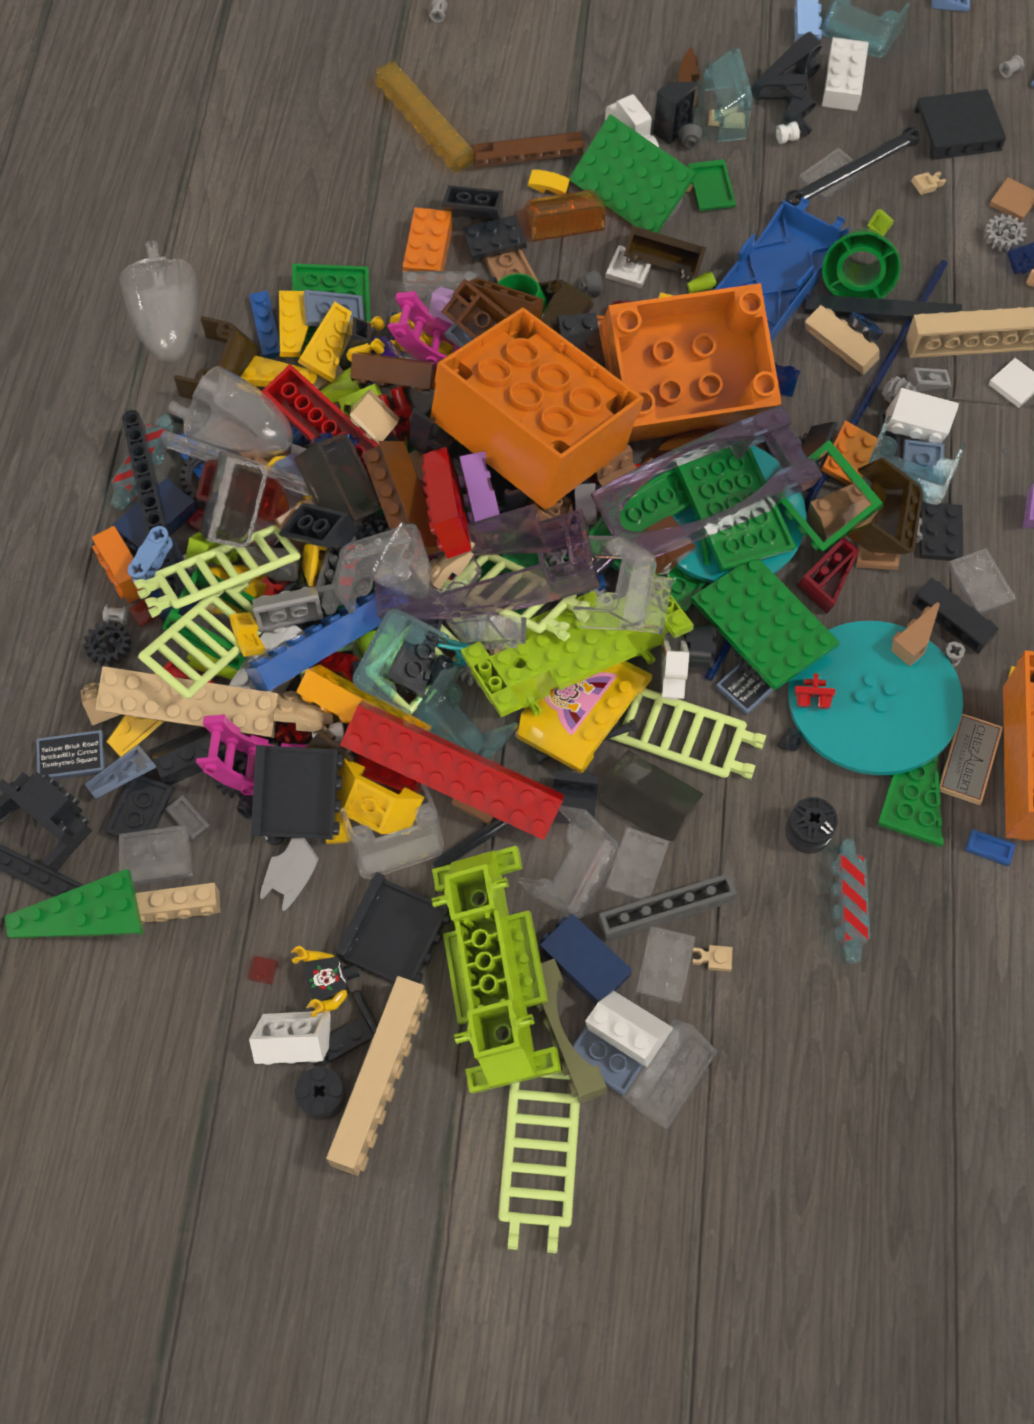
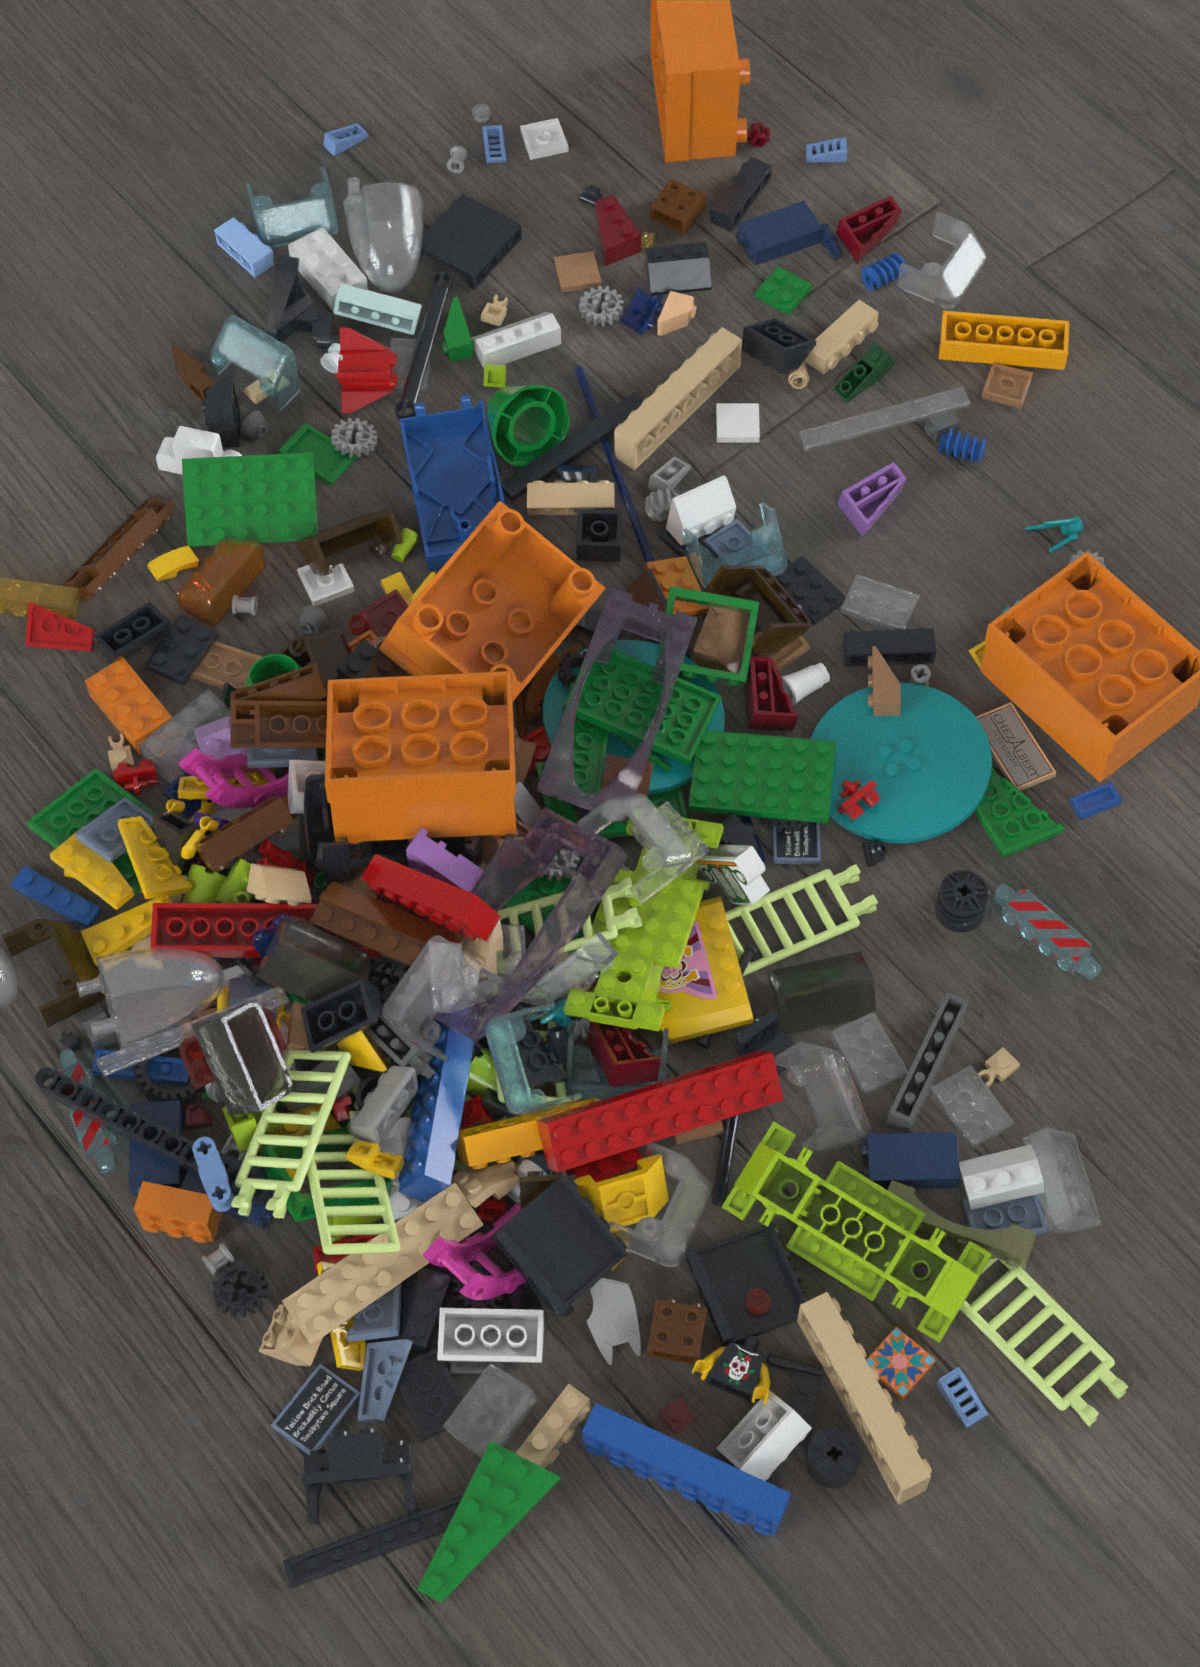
camera: 45 degrees left, 5 degrees down
(141, 613) = (240, 1234): clear red plate -> none
(158, 734) = (379, 1318): none -> sand blue wing
(206, 810) = (491, 1335): none -> white slope
(222, 1007) = (685, 1470): none -> blue brick
(317, 917) = (677, 1331): none -> reddish brown brick
(383, 291) = (136, 777): none -> red hips
(387, 950) = (758, 1301): none -> clear red plate
(390, 273) = (120, 753): none -> tan plate
(431, 1079) = (900, 1362): none -> tile
(434, 165) = (56, 631): none -> red wing
(444, 1120) = (963, 1383): none -> medium blue slope
(471, 718) = (621, 1056): none -> dark red wedge
(562, 241) = (244, 605): none -> light grey bush
(738, 191) = (343, 437): none -> light grey gear
(792, 150) = (364, 371): none -> red brick
(834, 377) = (599, 535): none -> black brick
(847, 120) = (377, 309): none -> light aqua brick
(866, 587) = (805, 682): none -> white plant
(884, 176) = (457, 339): none -> green slope
(904, 72) = (385, 231): none -> clear windscreen
(921, 212) = (517, 340): none -> white slope

